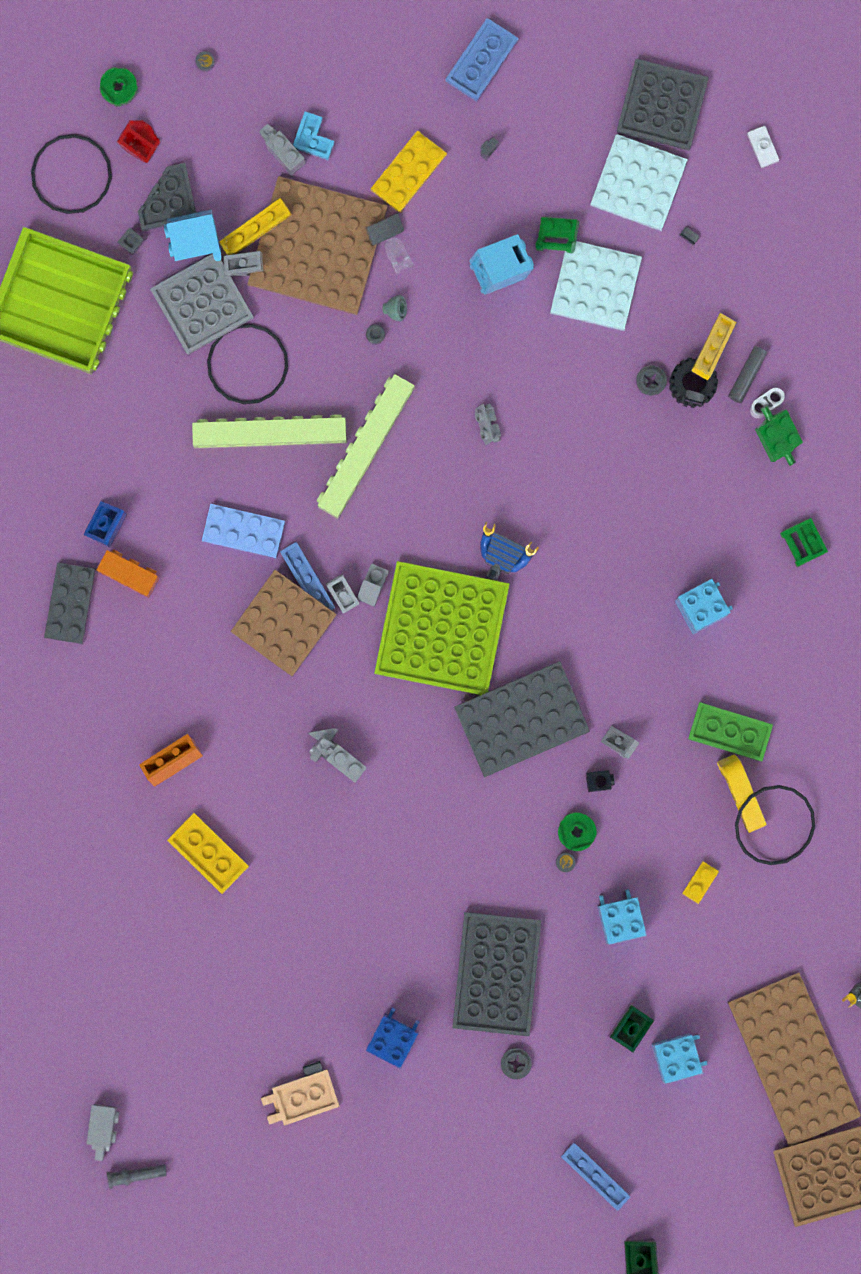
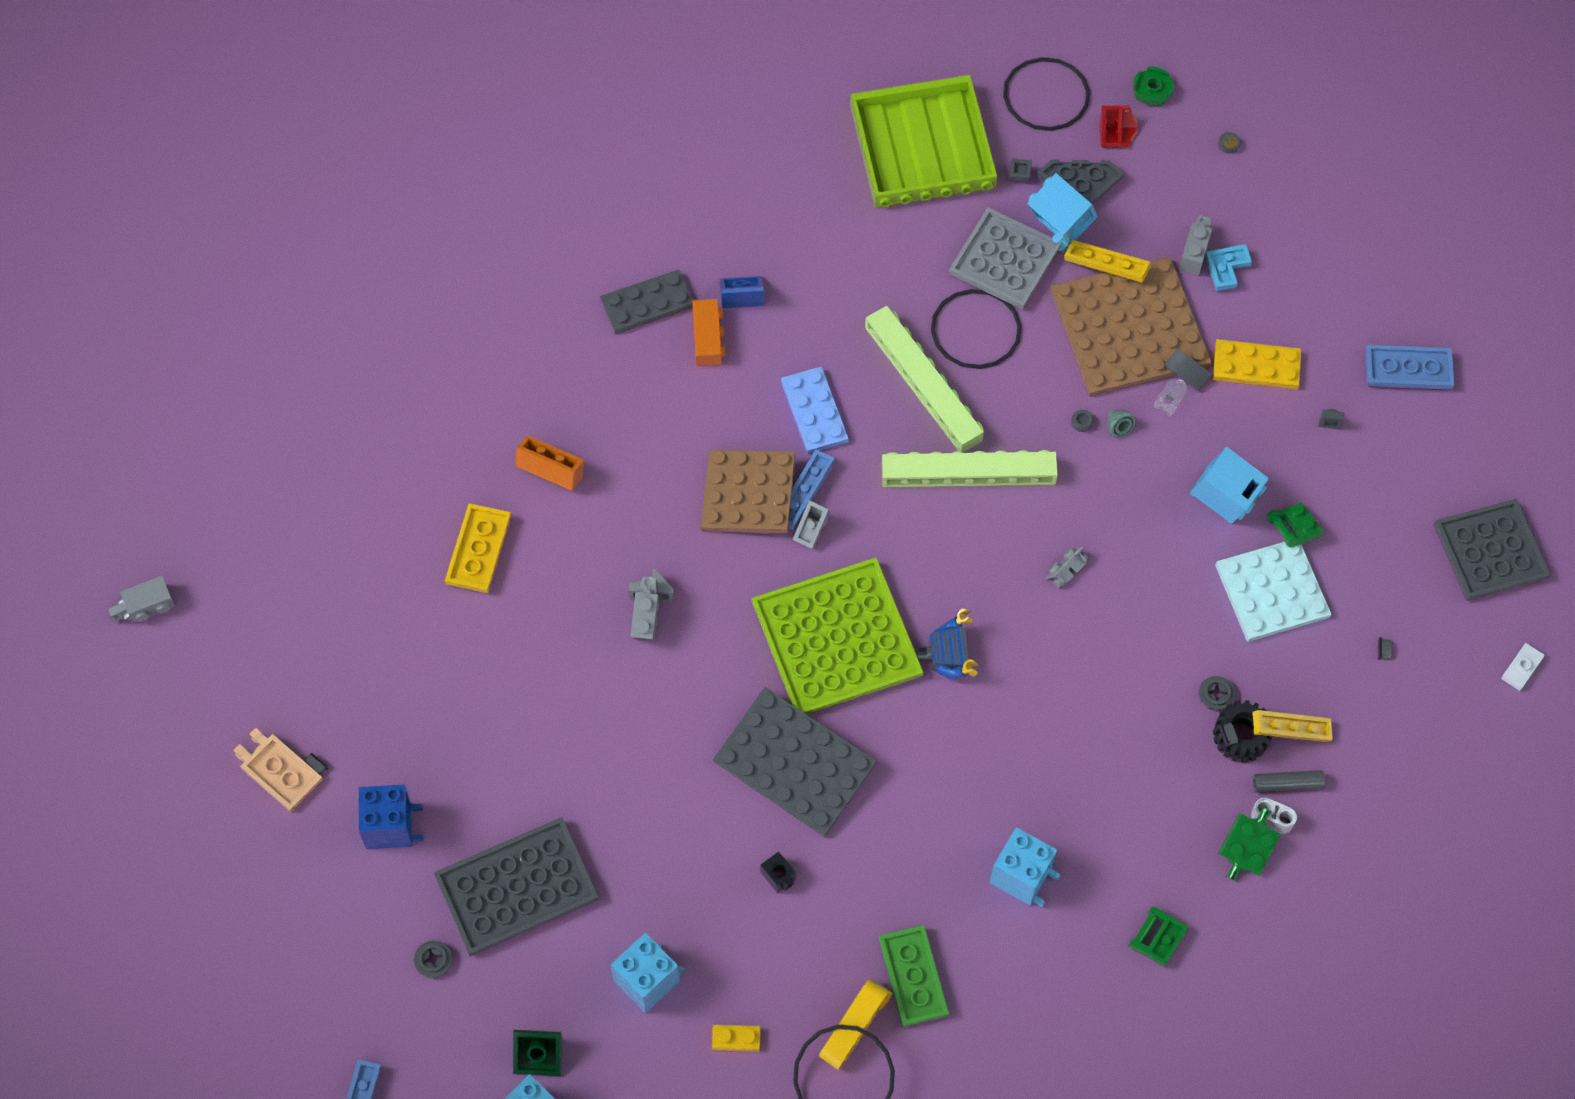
camera: 55 degrees right, 20 degrees down
(127, 1176) = (107, 651): dark grey pin -> none
(243, 264) = (1066, 268): light grey slope -> none
(372, 585) = (836, 551): light grey slope -> none
(565, 862) = (673, 889): dark grey tile -> none
(582, 822) = (699, 884): green plate -> none
(620, 742) = (831, 871): light grey slope -> none
(638, 182) = (1400, 572): light aqua plate -> none

